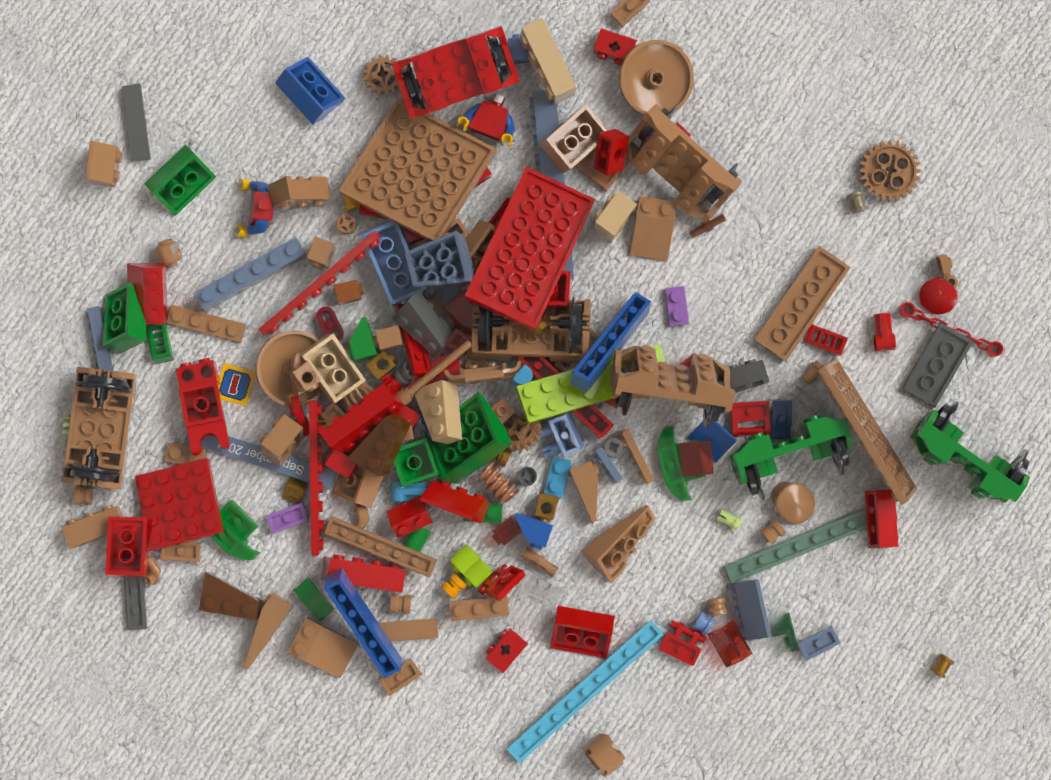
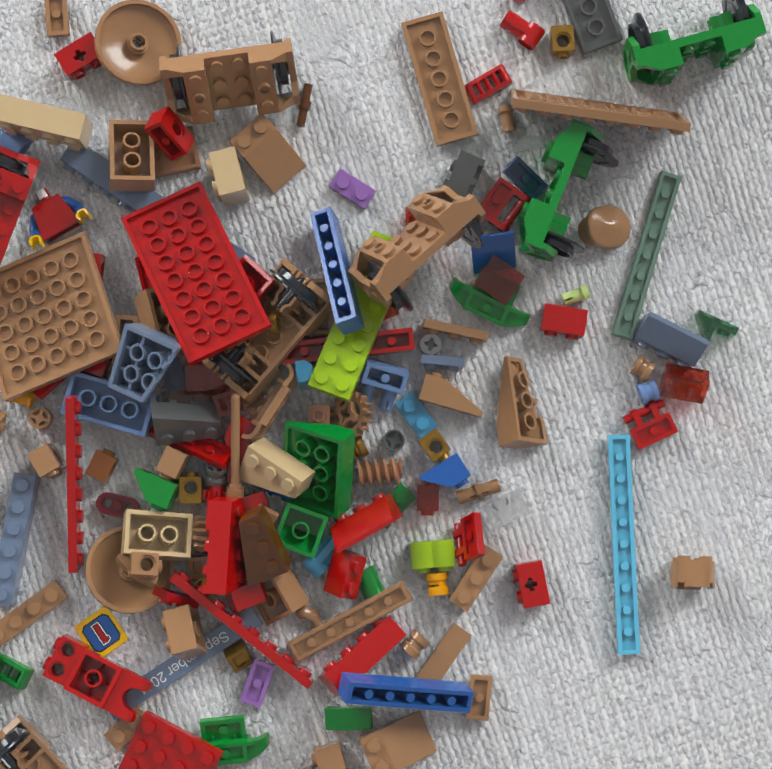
camera: 55 degrees left, 0 degrees up
(582, 631) = (569, 503): red slope -> none
(704, 525) = (563, 320): none -> red brick
(772, 531) = (616, 266): medium nougat wheel -> none
(818, 643) = (745, 306): sand blue plate -> none
(881, 519) = (682, 163): red brick -> none
(903, 360) = (562, 32): none -> pearl gold brick

